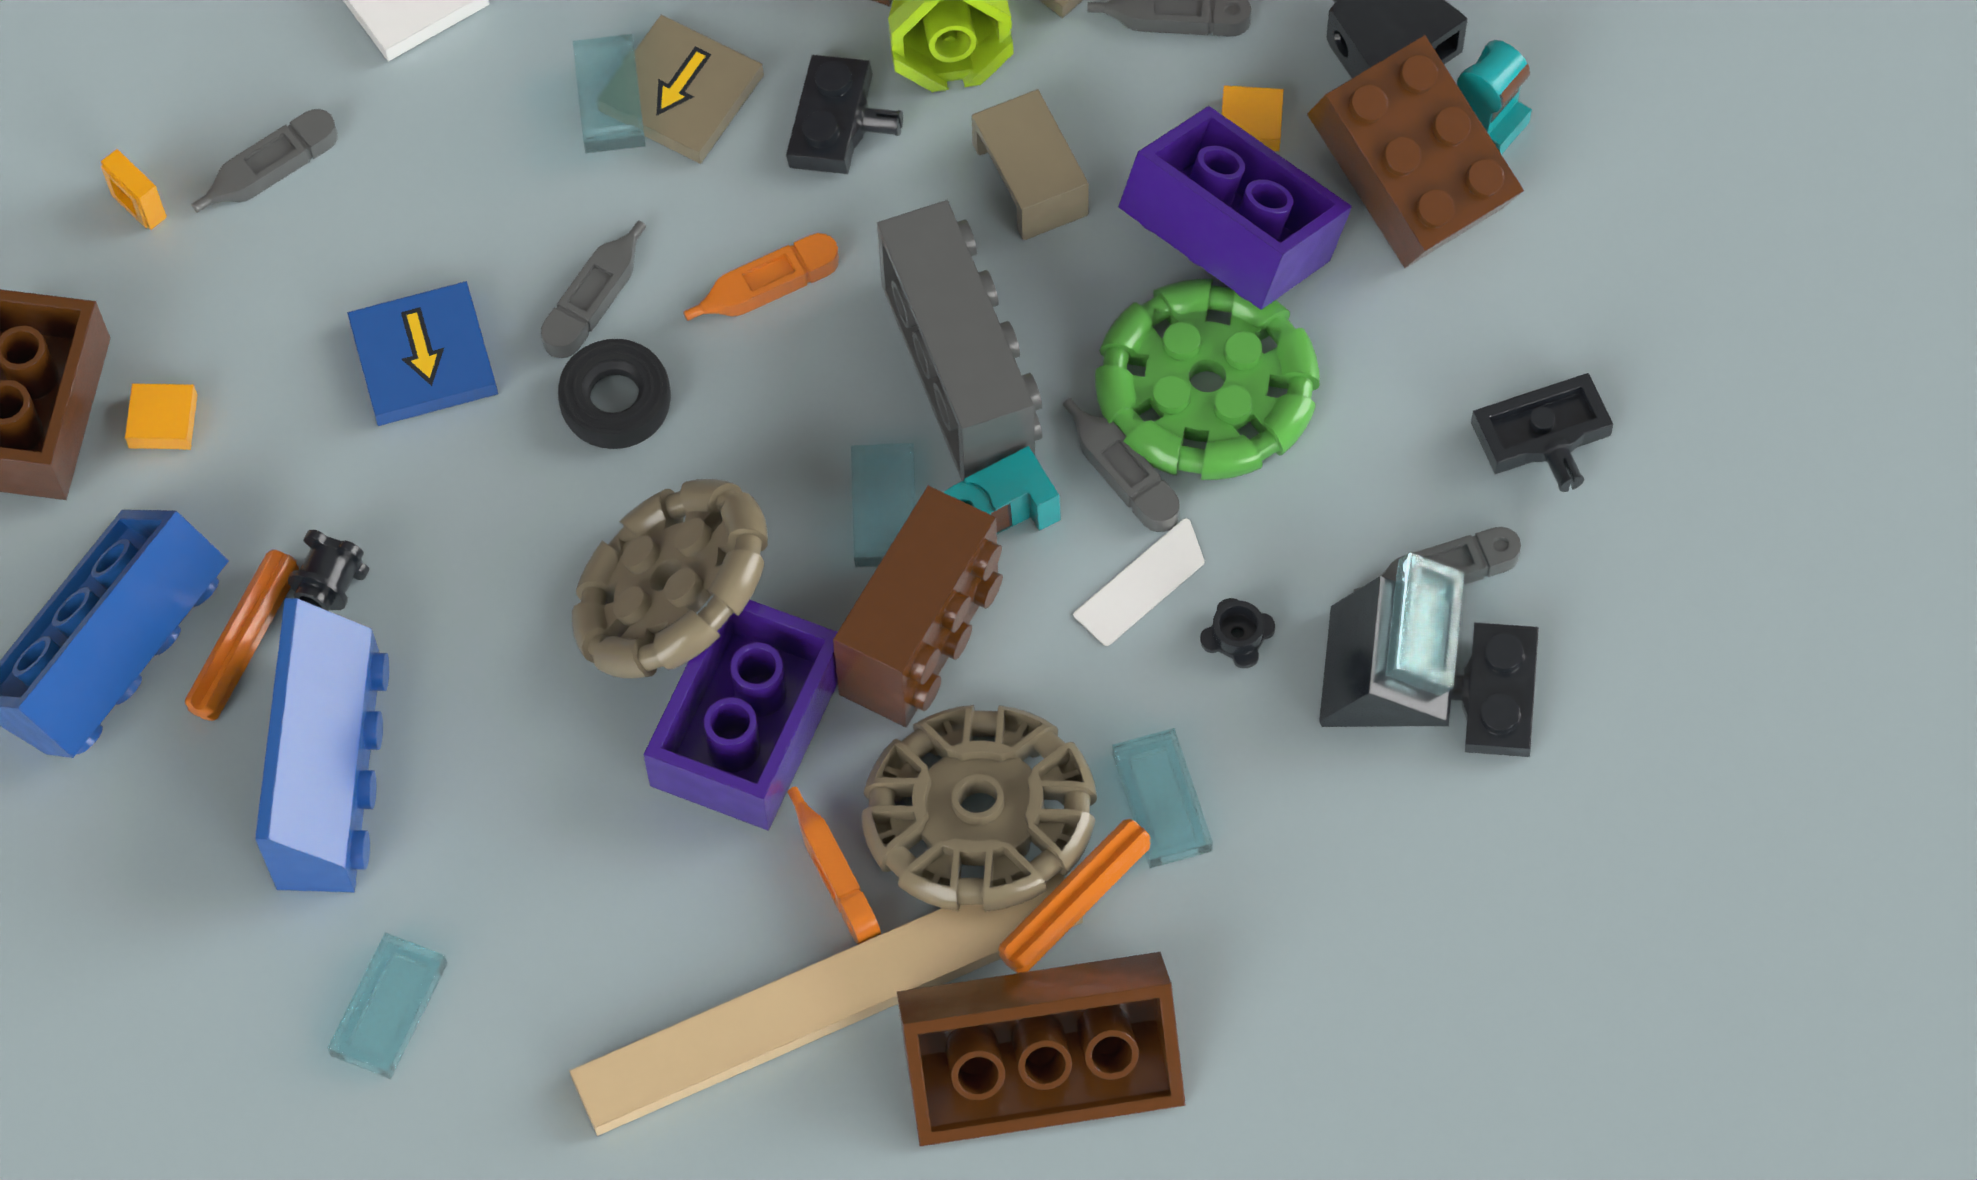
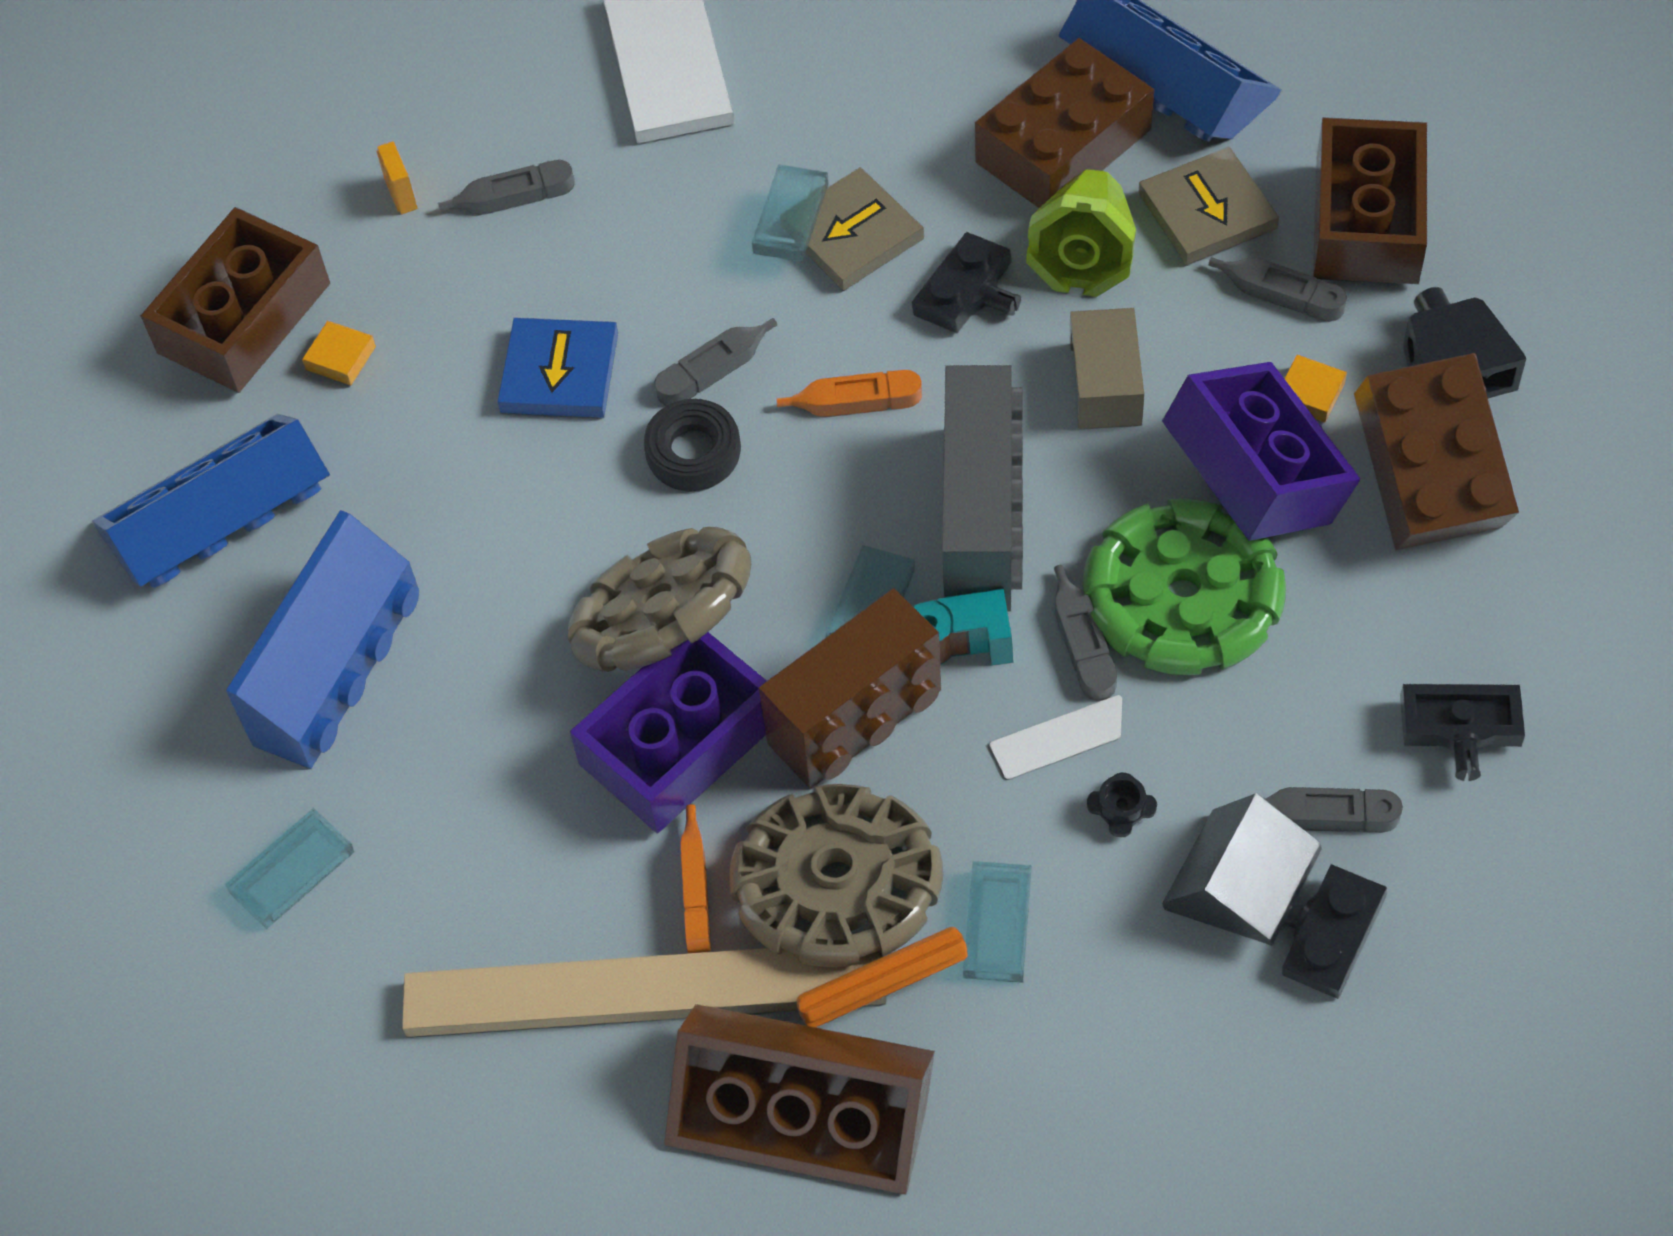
camera: 25 degrees right, 5 degrees down
(241, 636) = (293, 555): orange axle -> none
(327, 571) = (402, 510): black brick -> none
(1425, 624) = (1281, 848): clear light blue tile -> none
(1494, 91) = (1525, 426): teal leg -> none

